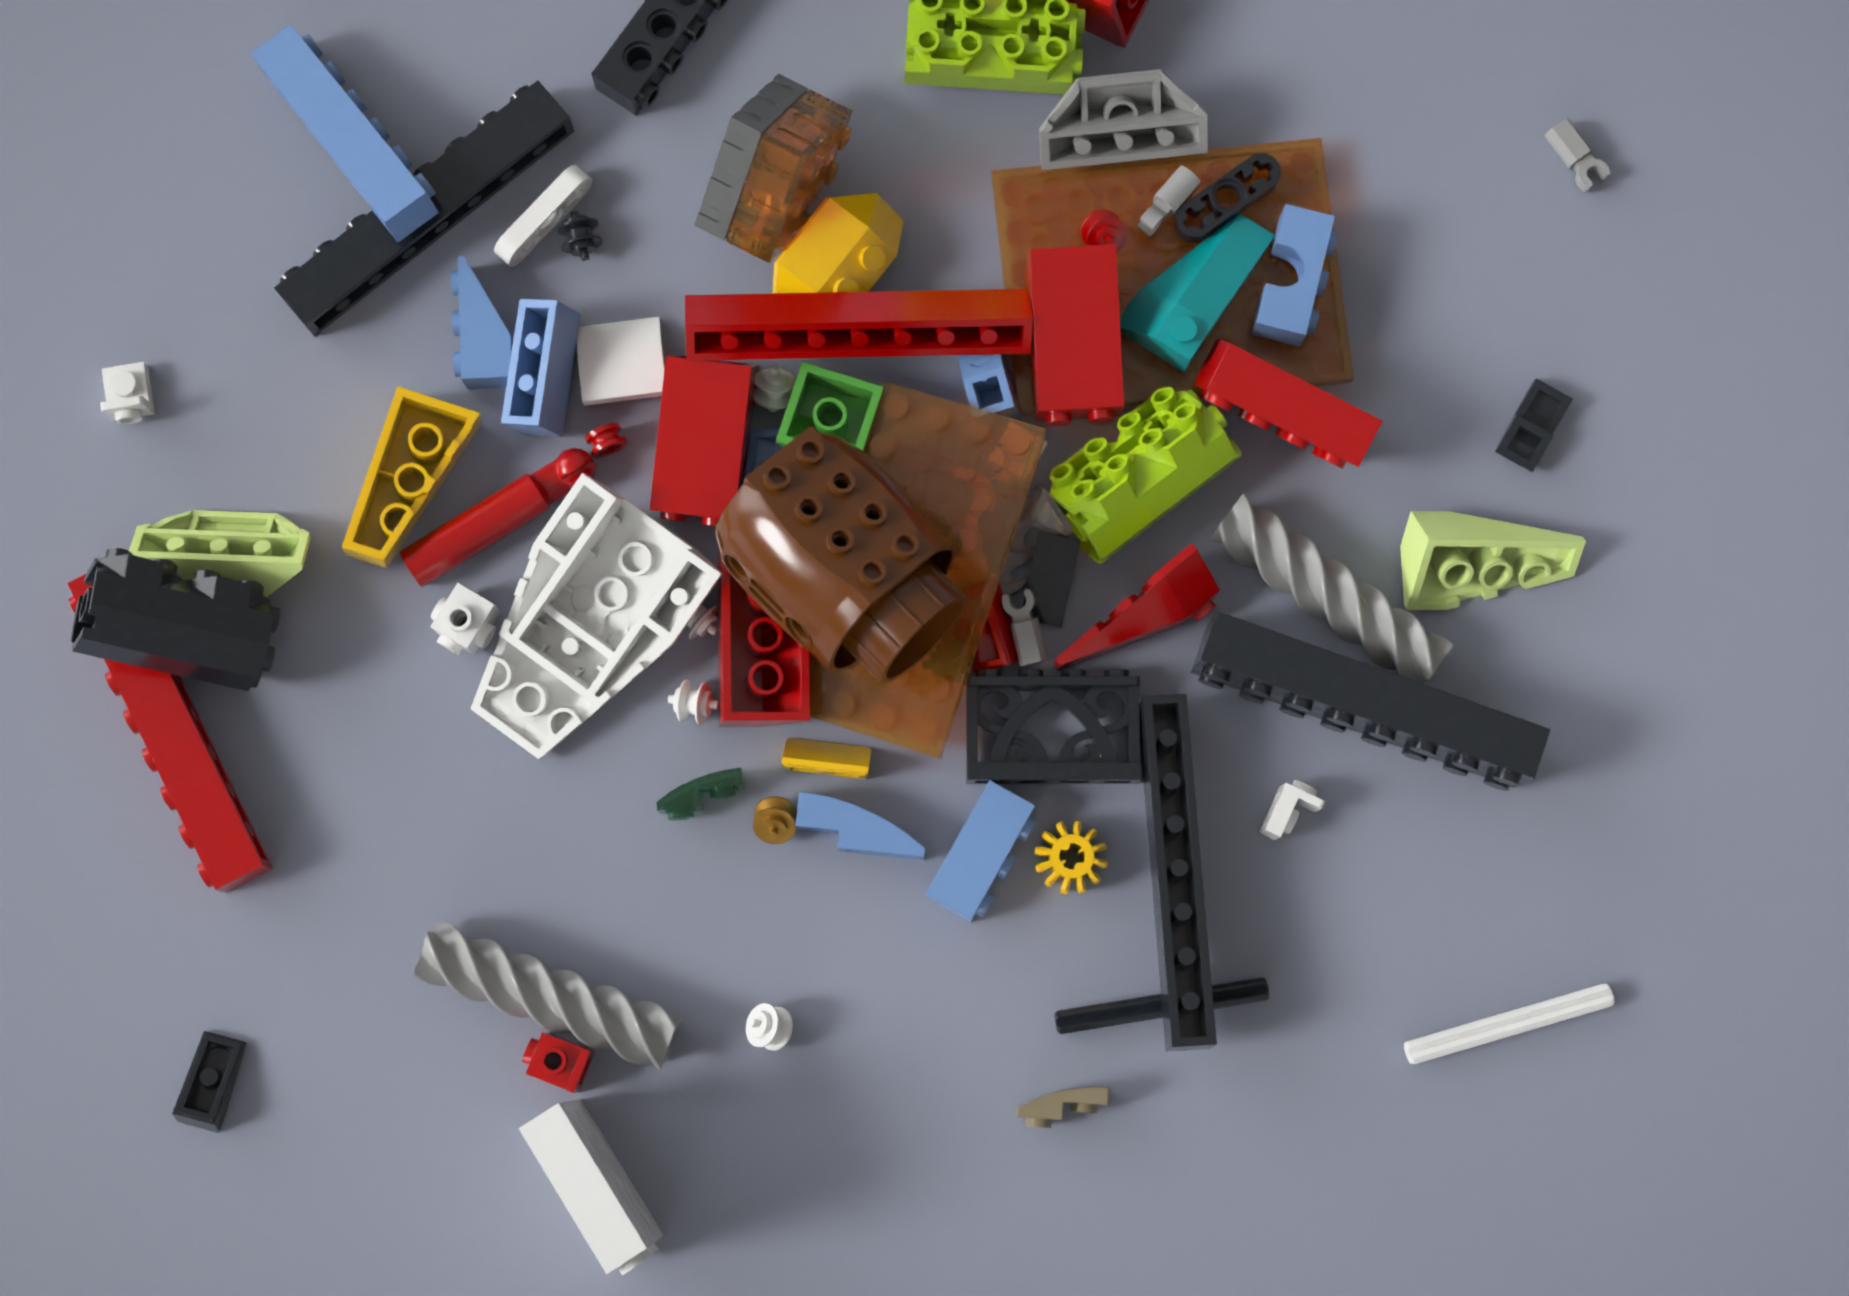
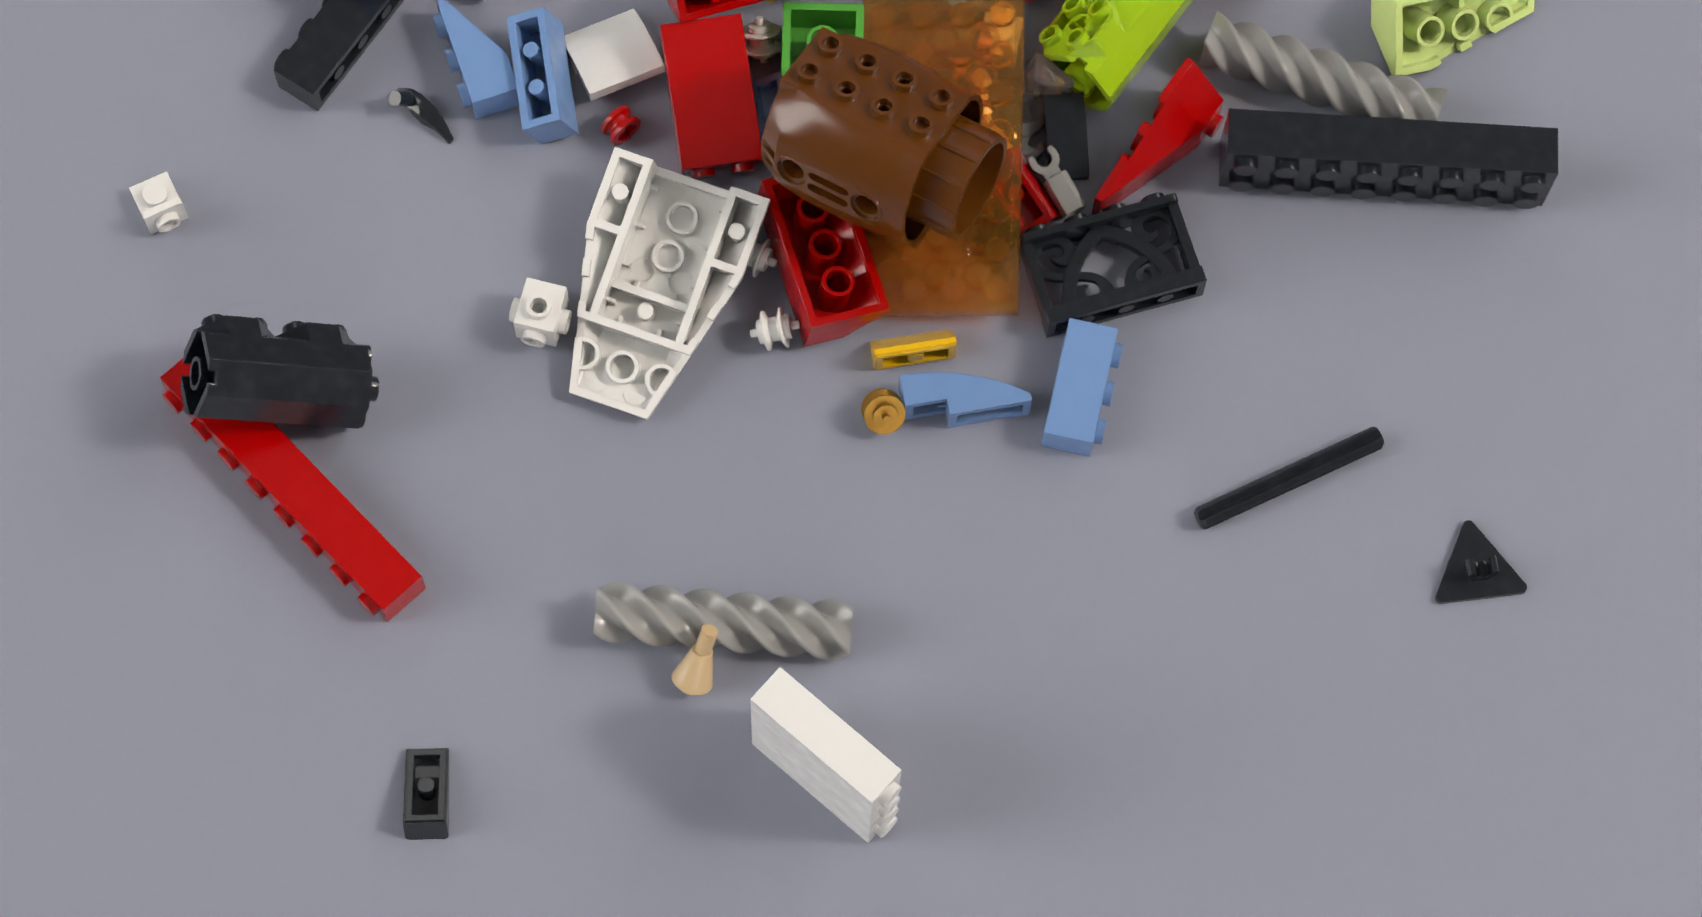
camera: 15 degrees left, 10 degrees down
(227, 542) = (324, 299): yellowish green wedge -> none
(407, 469) = (448, 188): yellow wedge -> none
(414, 361) = (421, 109): none -> black bar
(495, 517) = (538, 219): red piece -> none
(505, 1039) = (695, 670): none -> tan cone
(574, 1063) = (736, 689): red brick -> none
(688, 797) = (796, 414): clear green slope -> none
(769, 1027) = (936, 593): white wheel -> none
(1049, 1107) = (1217, 591): dark tan slope -> none
(1079, 869) = (1169, 355): yellow gear -> none
(1176, 874) = (1267, 352): black brick -> none
(1282, 815) = (1344, 273): white bracket -> none
(1320, 1156) = (1477, 570): none -> black piece
(1509, 1023) = (1606, 406): white axle -> none

